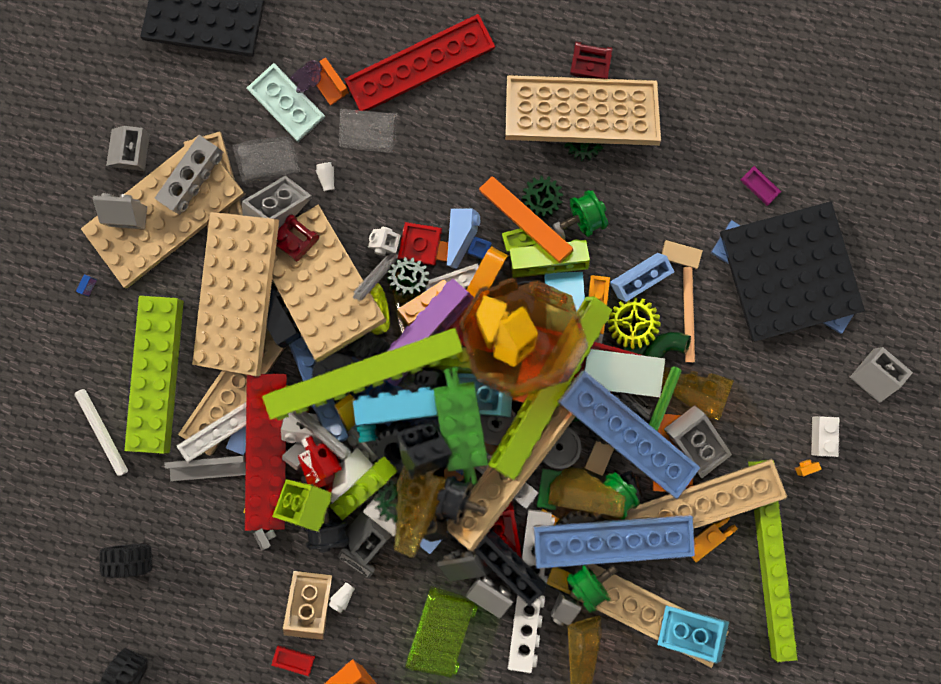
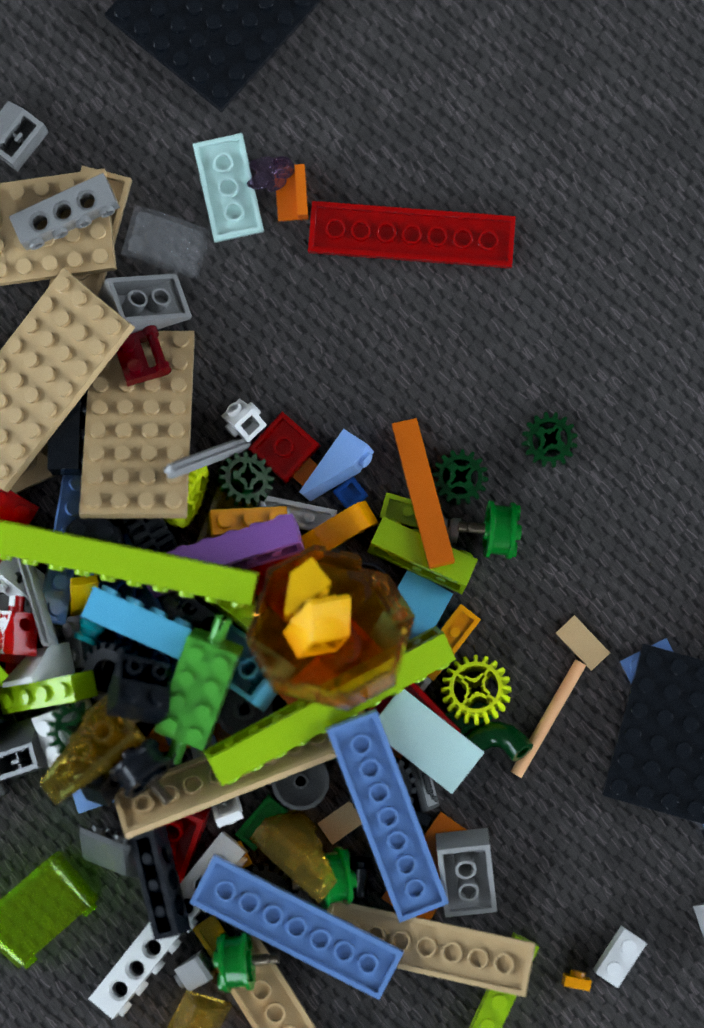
camera: 35 degrees right, 0 degrees up
(326, 175) = (223, 301): white cone -> none
(367, 130) = (303, 279): clear slope -> none
(490, 596) = (119, 903): light grey slope -> none
(582, 110) = (566, 404): tan plate -> none
(590, 66) = (610, 356): dark red plate -> none
(642, 277) = (518, 641): light blue brick -> none
(665, 397) = (456, 798): bright green axle -> none
(703, 392) = (509, 821): clear yellow wedge -> none
(711, 538) = (412, 993): light orange hinge -> none

